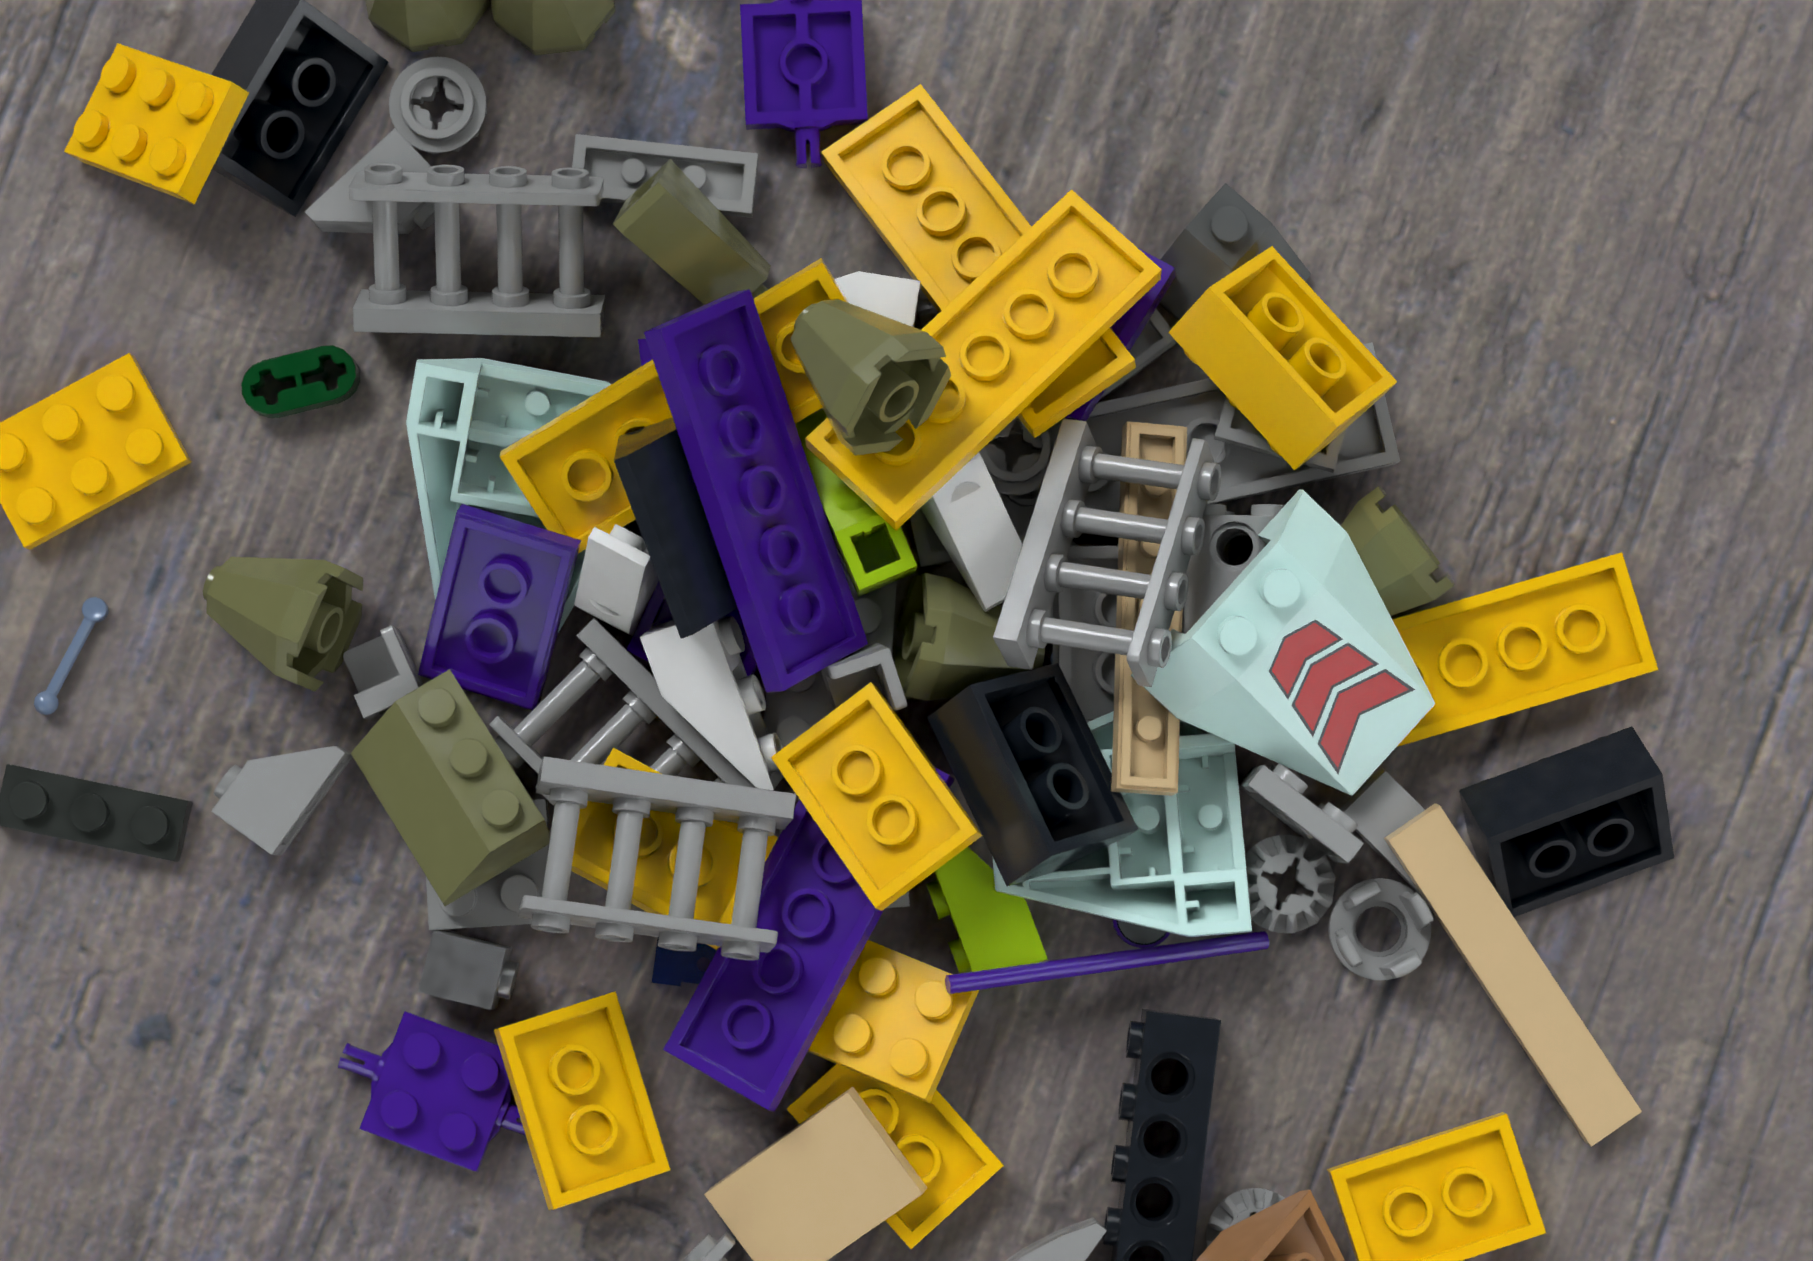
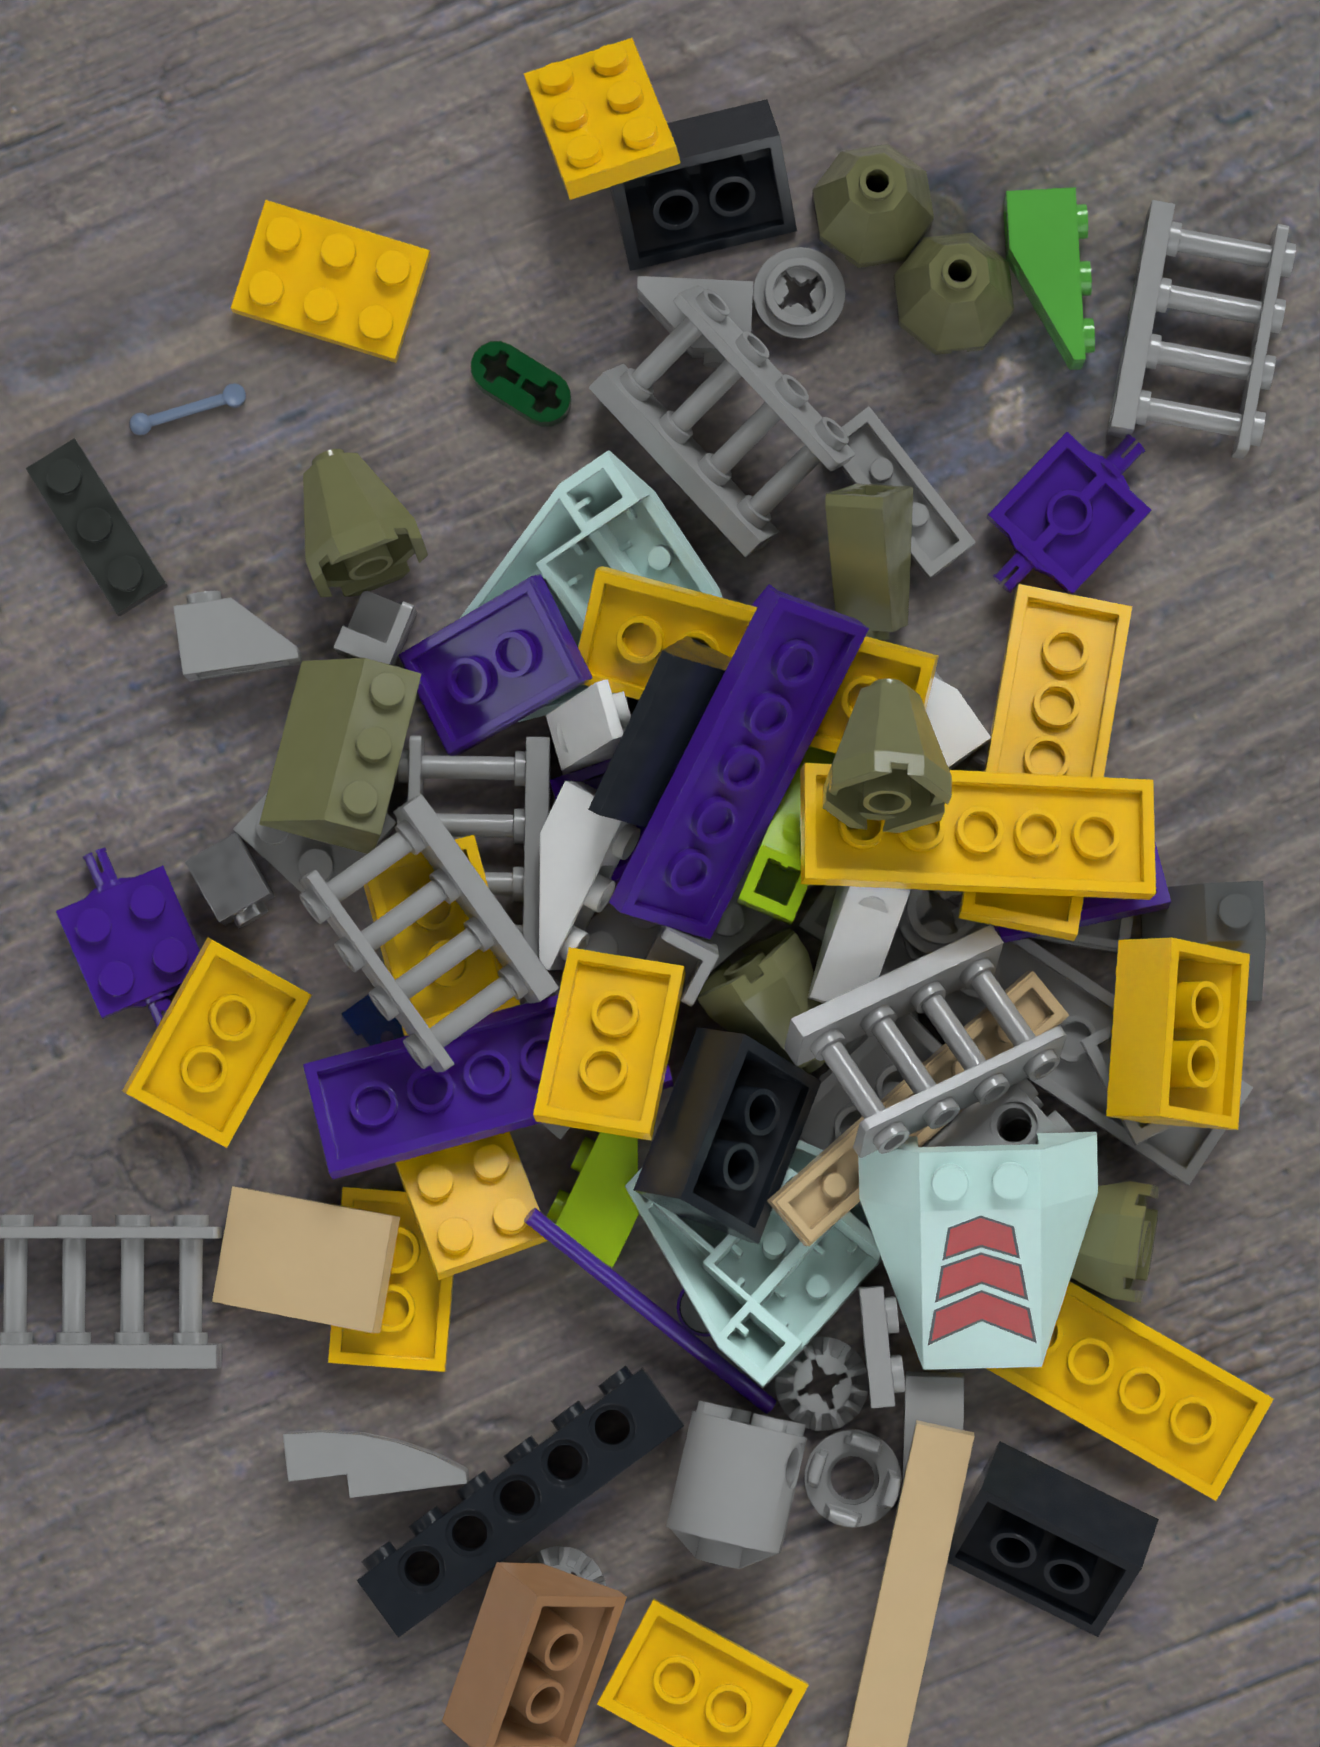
camera: 60 degrees right, 0 degrees up
(1304, 1023) = (735, 1485): none -> light grey cylinder

